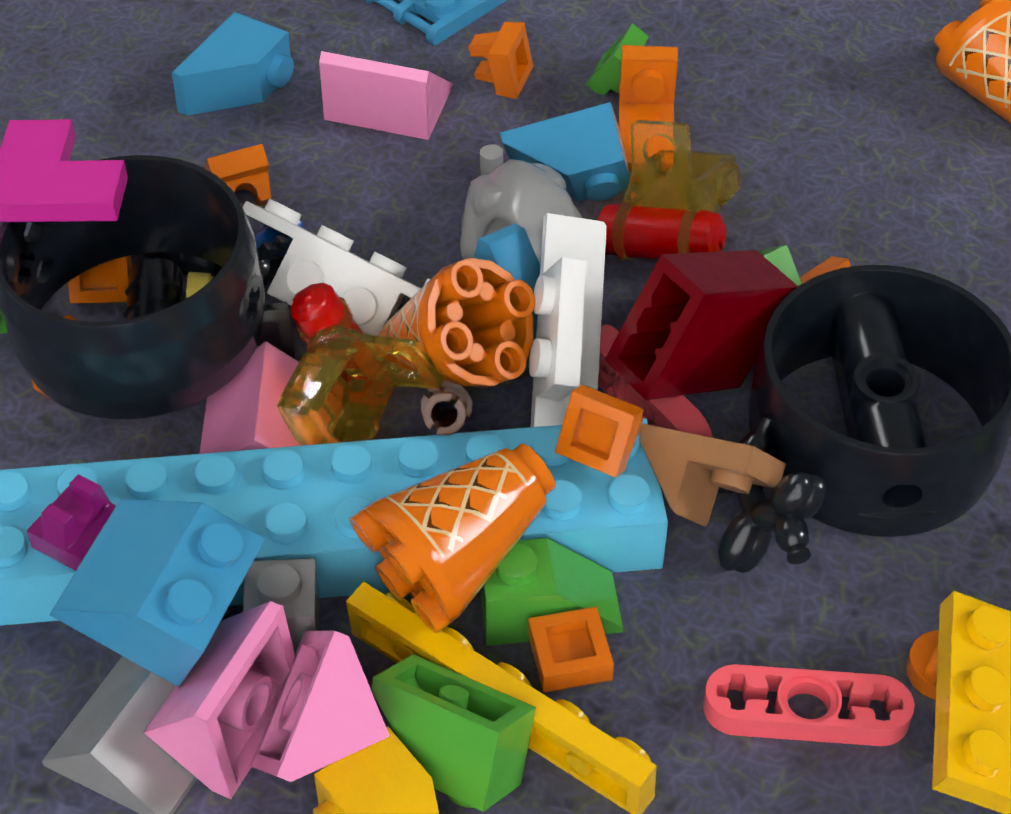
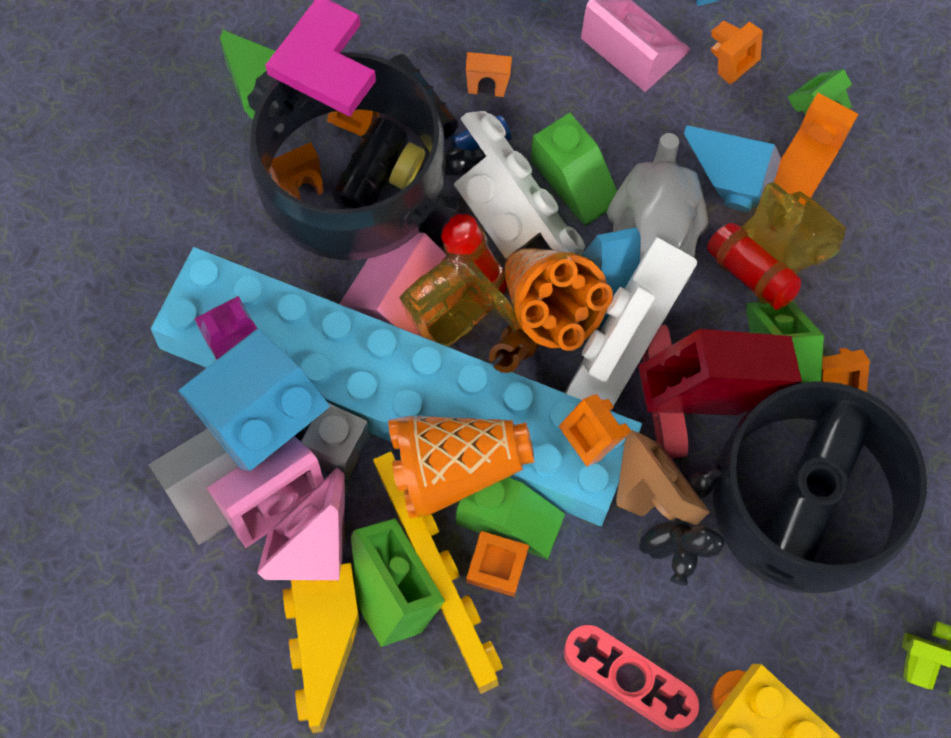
camera: 25 degrees right, 20 degrees up
(397, 222) = (574, 168): none -> bright green slope

